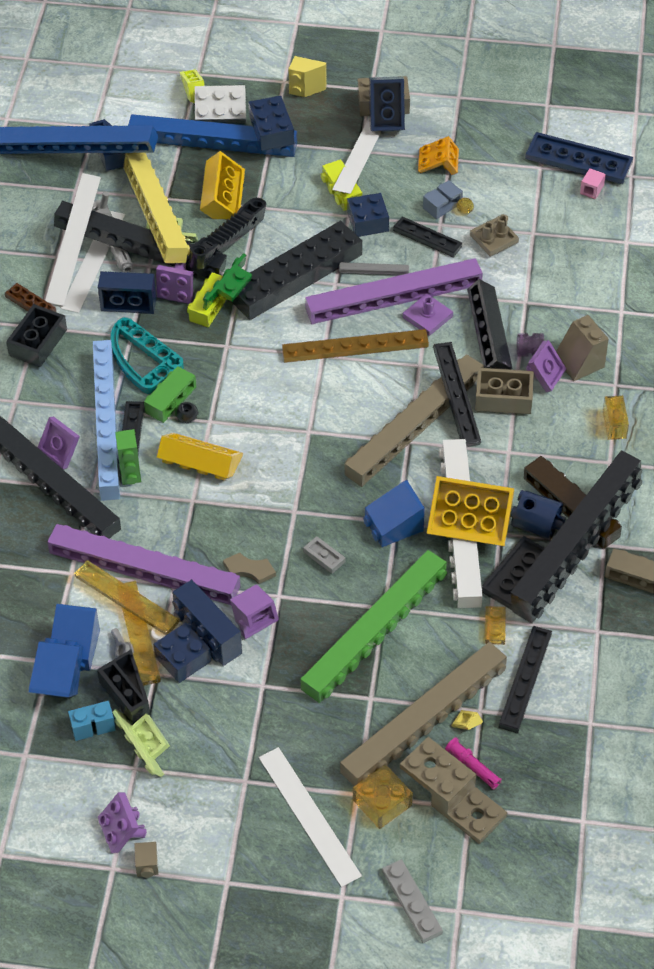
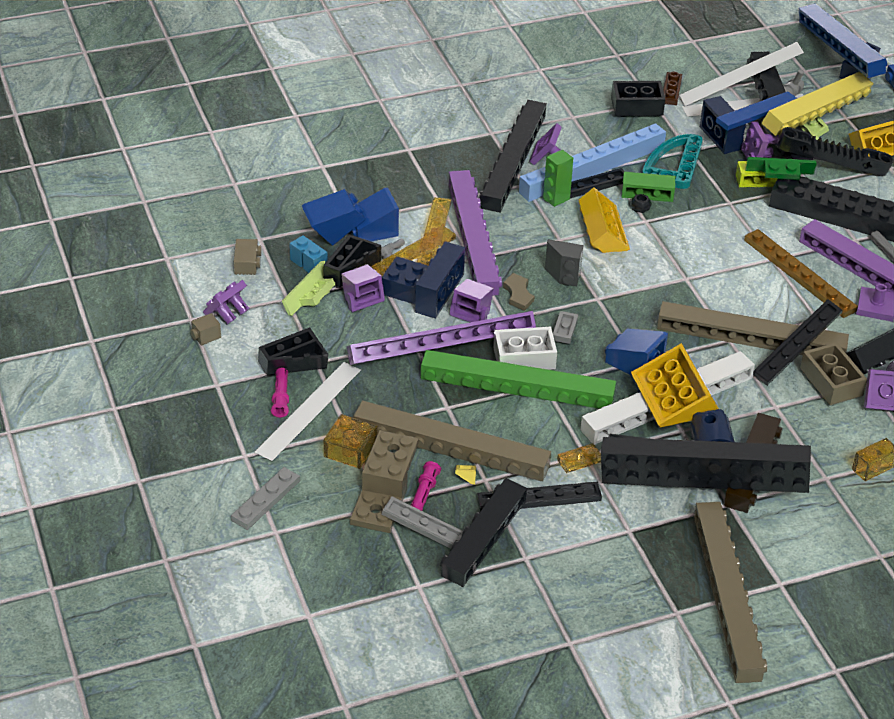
camera: 60 degrees right, 10 degrees down
(54, 777) = (246, 256): none -> dark tan brick
(145, 256) = (753, 112): none -> blue tile
(175, 693) = (362, 287): none -> medium lavender plate
(235, 790) = (294, 353): none -> black wedge
(245, 511) = (564, 261): none -> dark grey slope
(285, 832) = (280, 397): none -> dark pink pin
(287, 662) = (436, 338): none -> medium lavender brick
(342, 599) = (526, 347): none -> white brick
(517, 782) = (421, 522): none -> light grey tile
(556, 739) = (483, 532): none -> black brick

